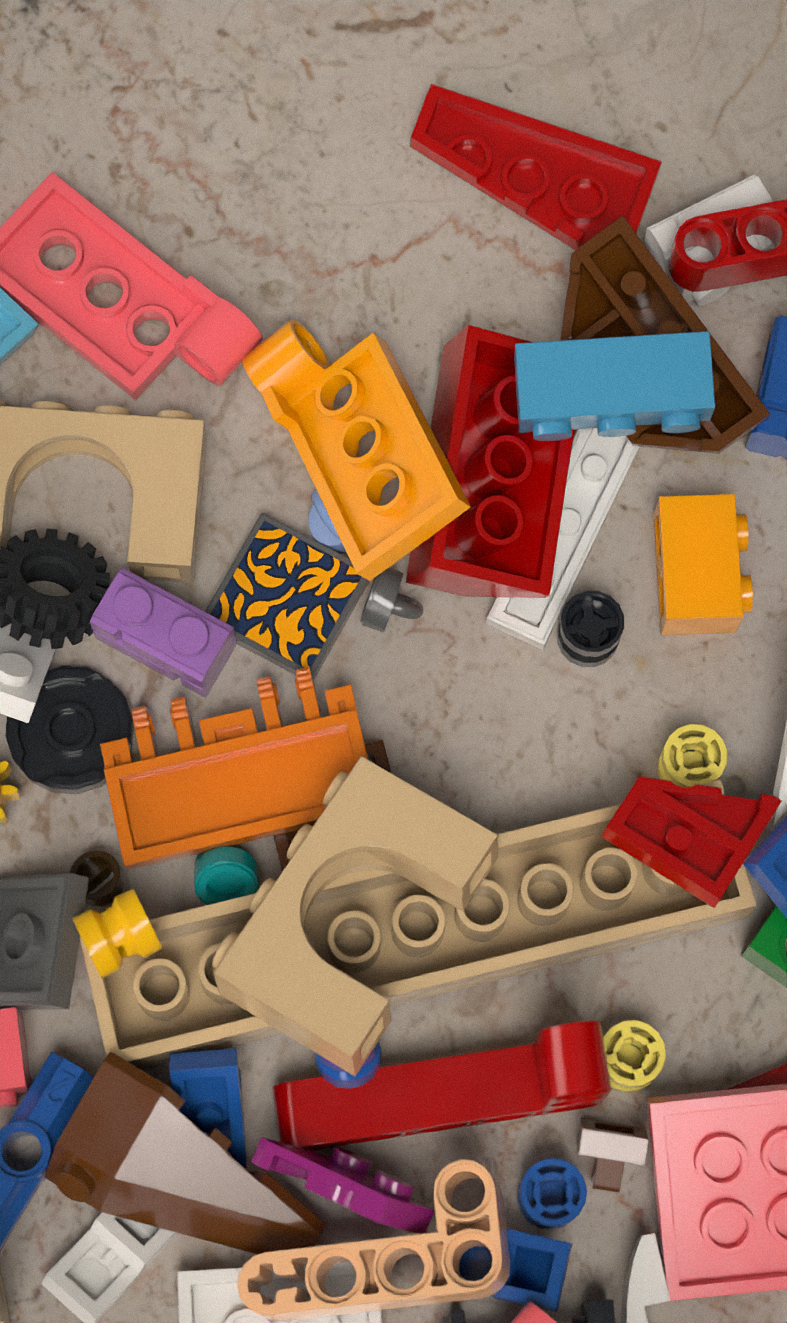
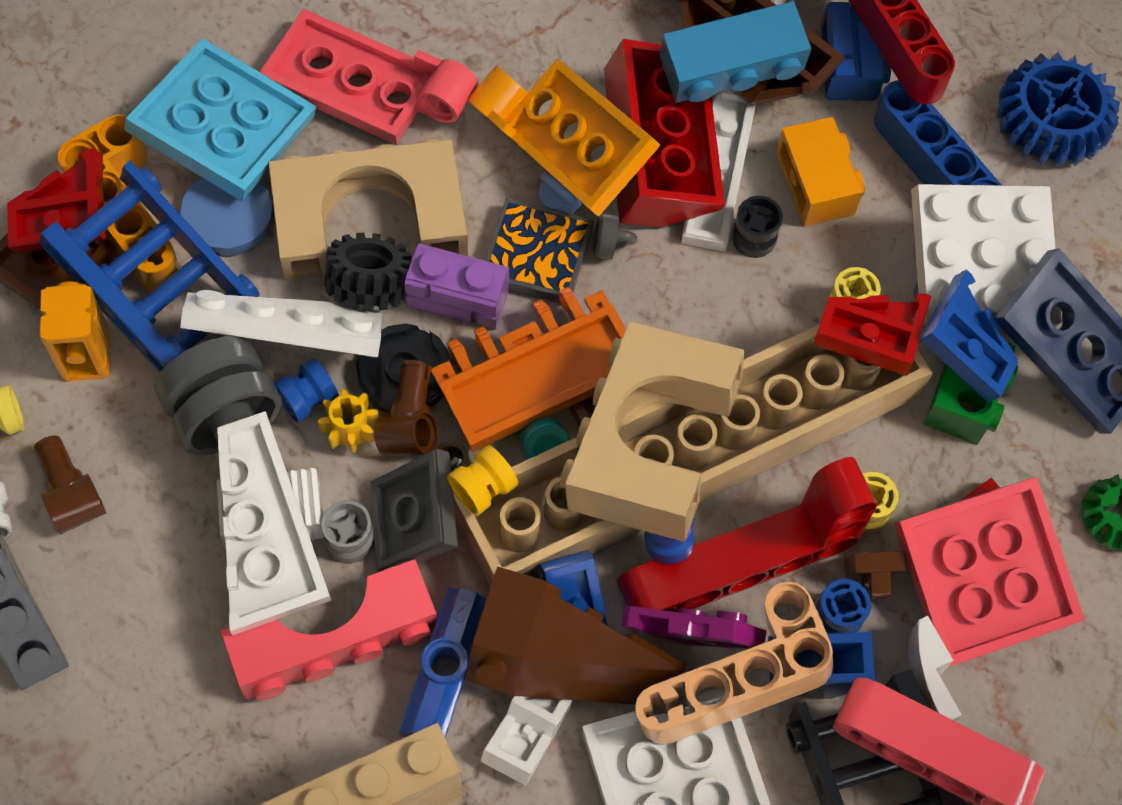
camera: 15 degrees left, 10 degrees down
(53, 817) = (410, 425): none -> reddish brown pin

